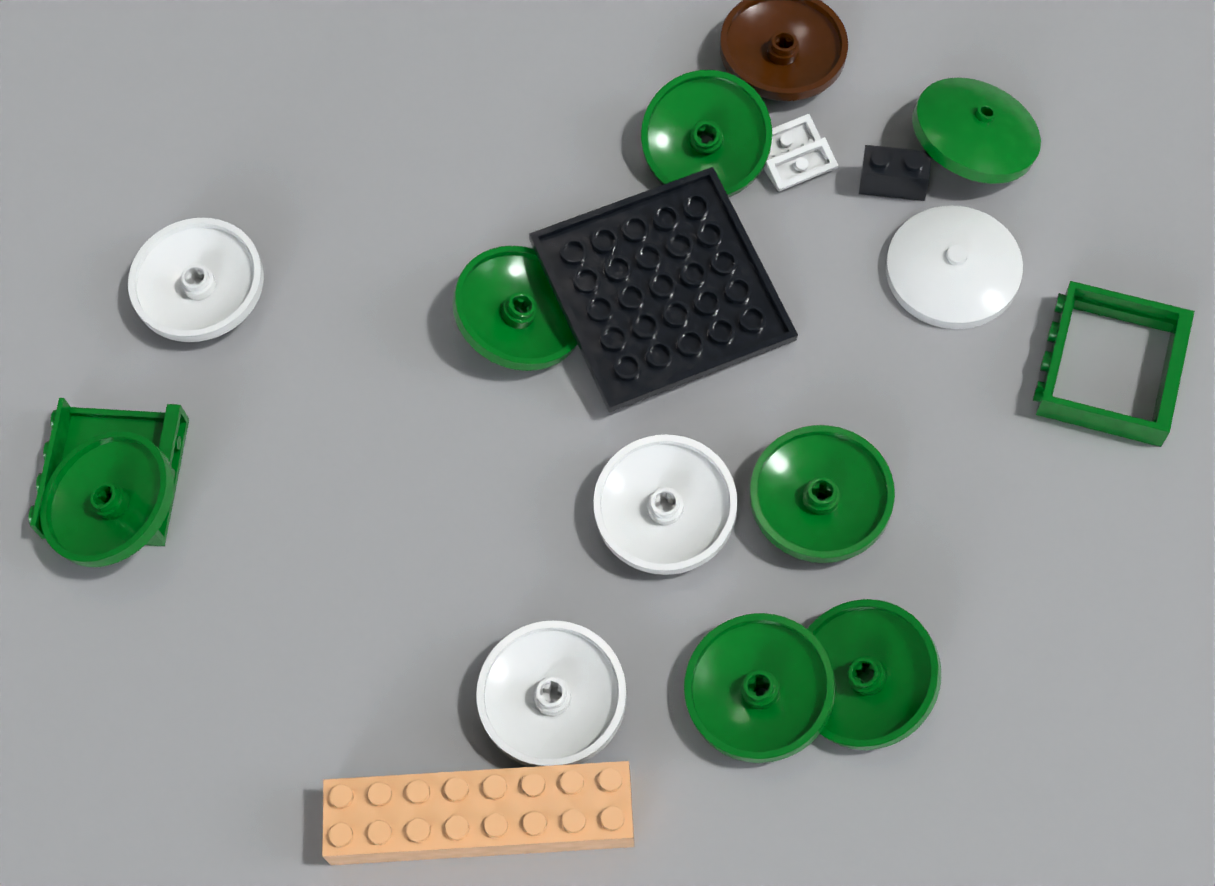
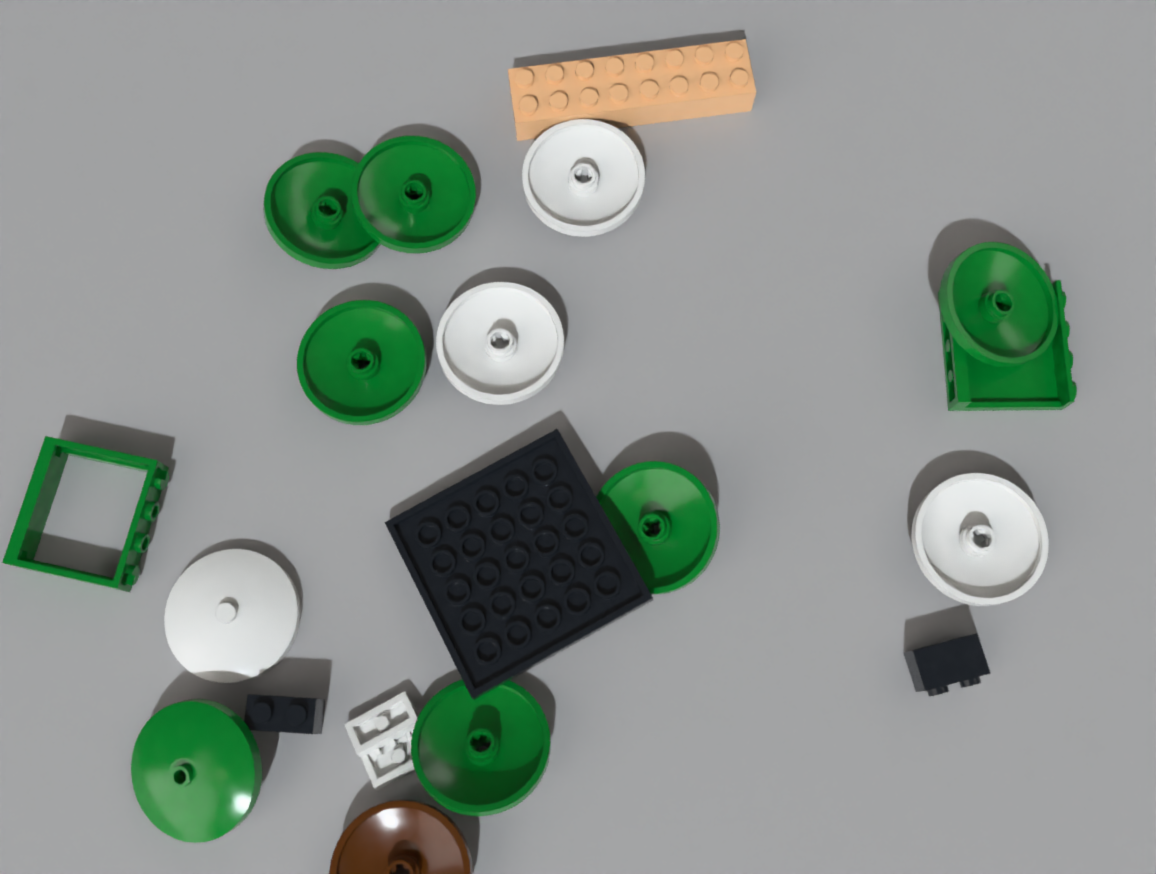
camera: 170 degrees right, 10 degrees up
(257, 182) = (947, 663): none -> black brick

